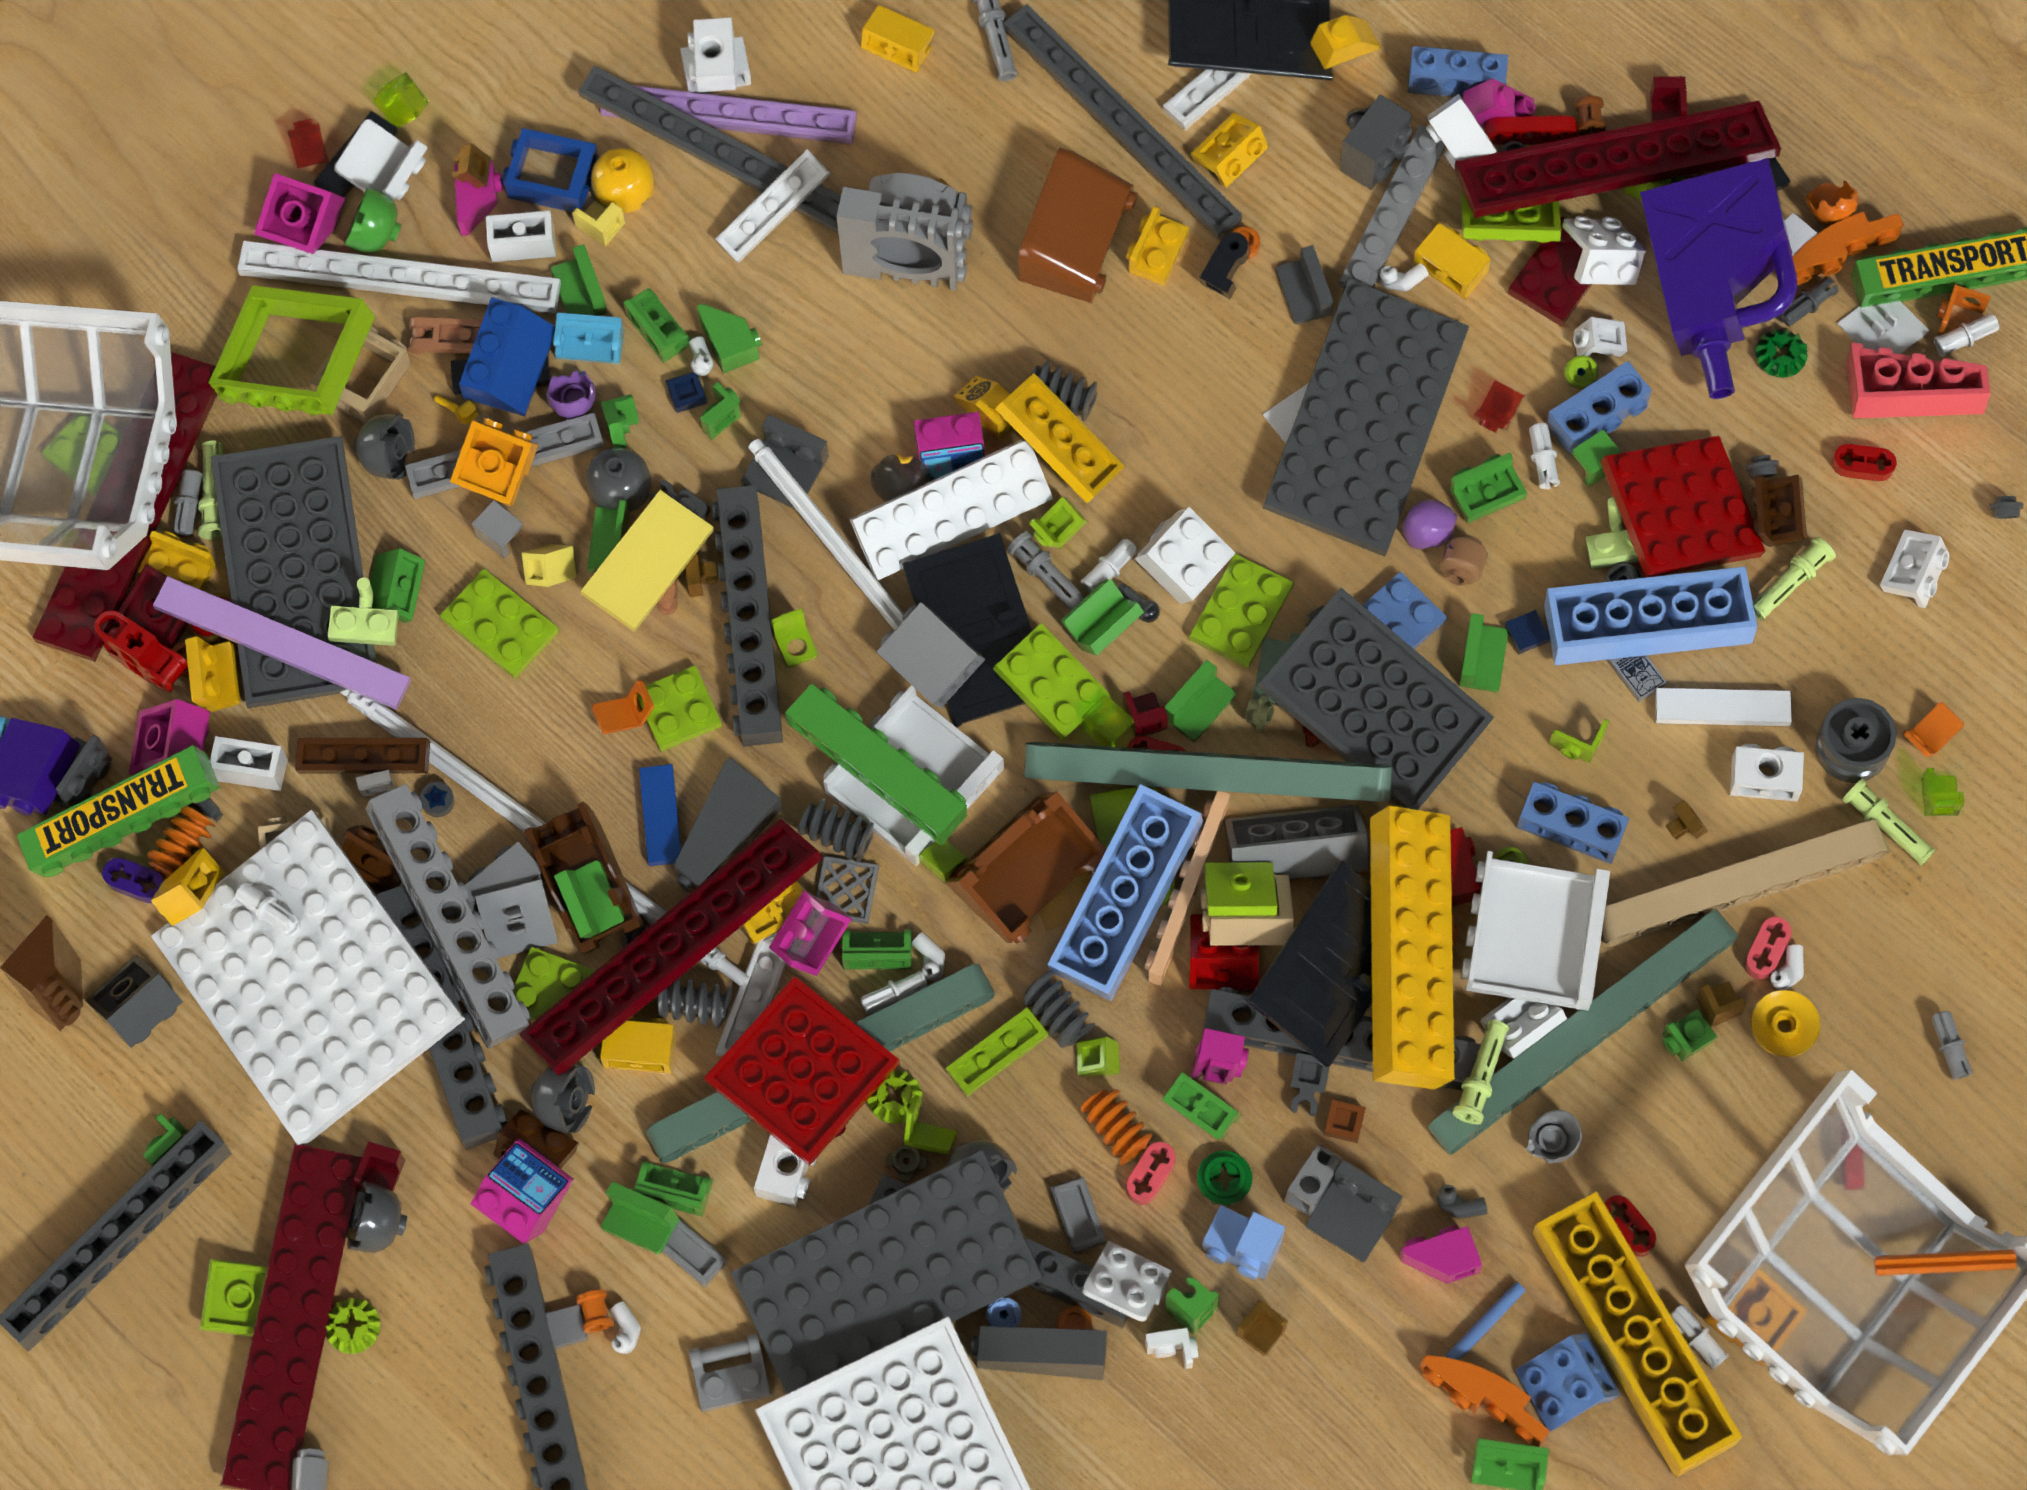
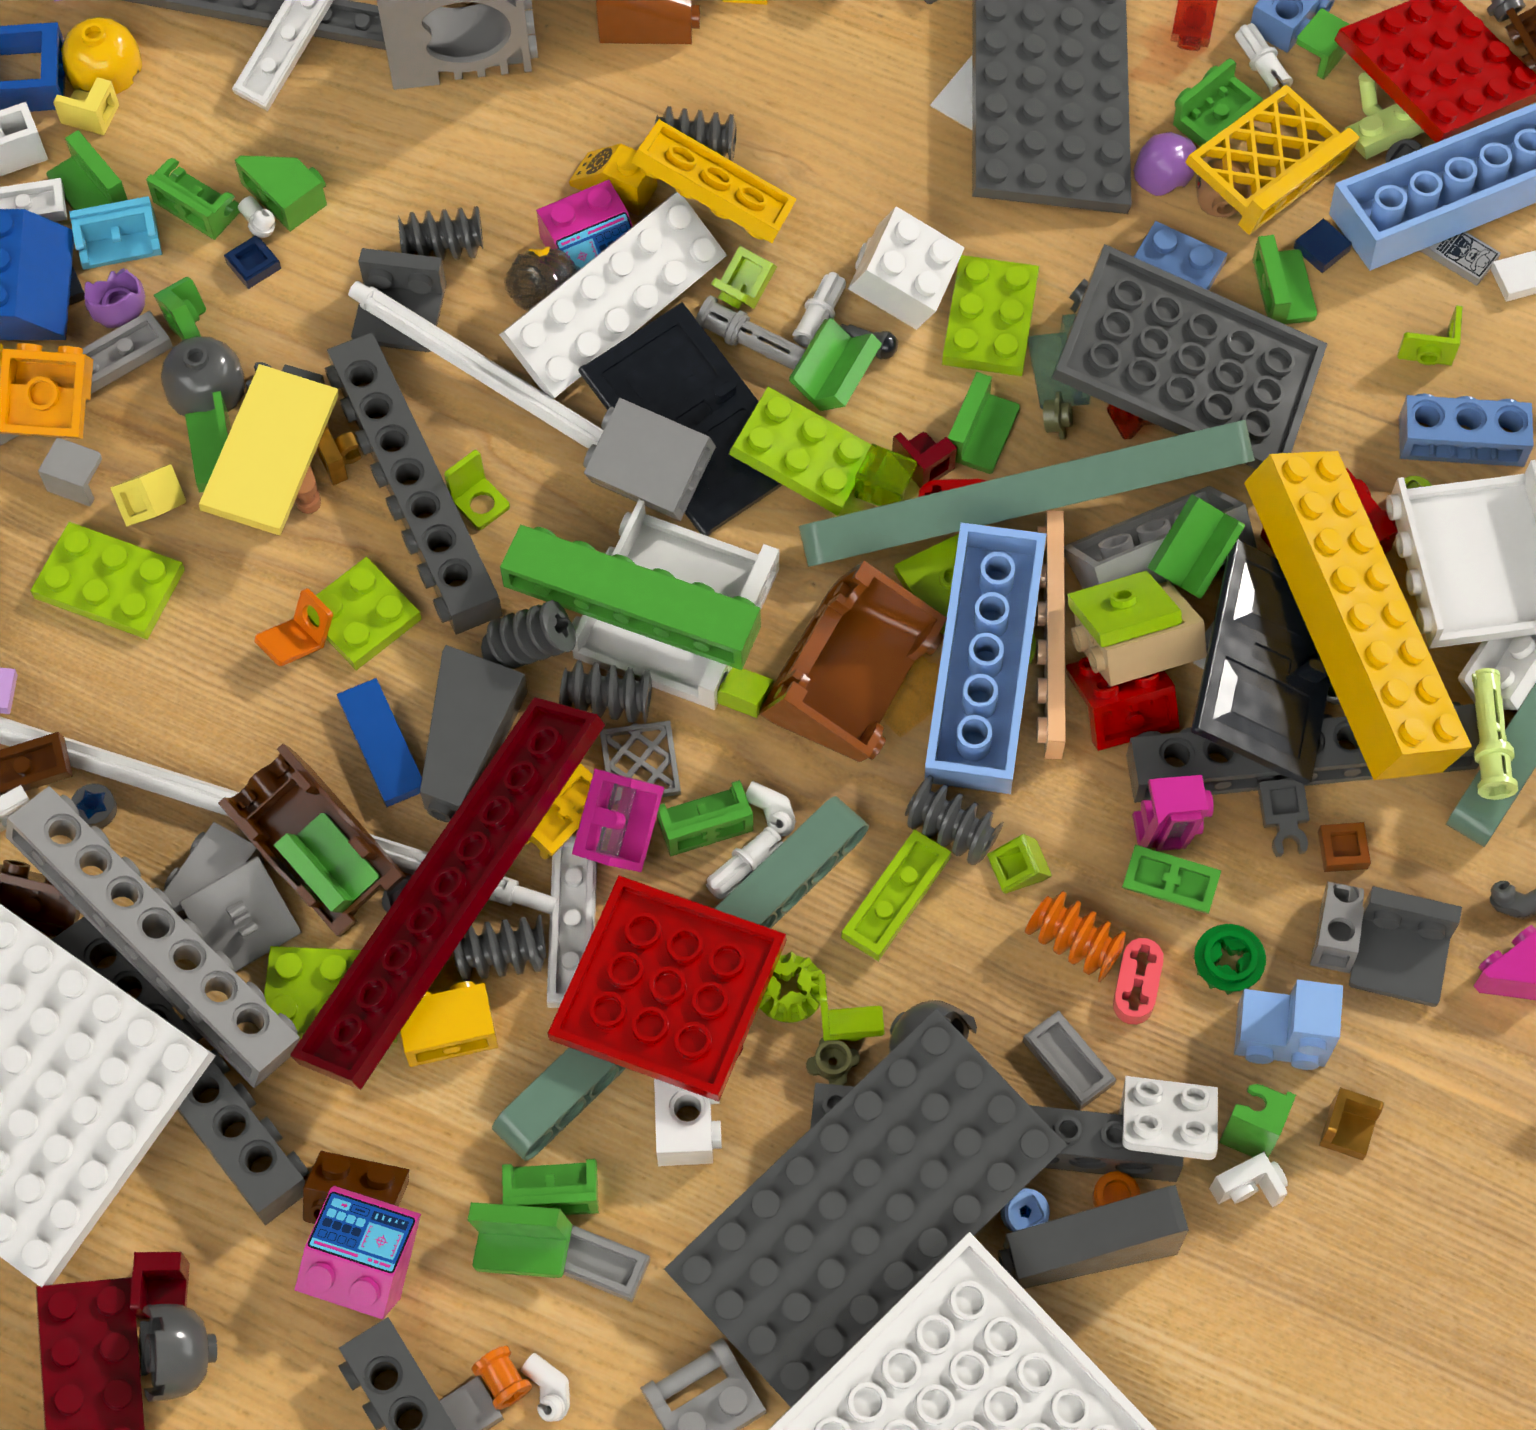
camera: 20 degrees left, 5 degrees down
(562, 1098) = (370, 1119): dark grey cylinder -> none
(721, 415) = (302, 270): bright green bracket -> none
(792, 769) = (529, 636): none -> dark grey piece
(835, 417) = (442, 234): none -> dark grey piece
(1314, 856) = (1196, 546): none -> bright green panel
(1518, 574) = (1289, 183): none -> yellow fence

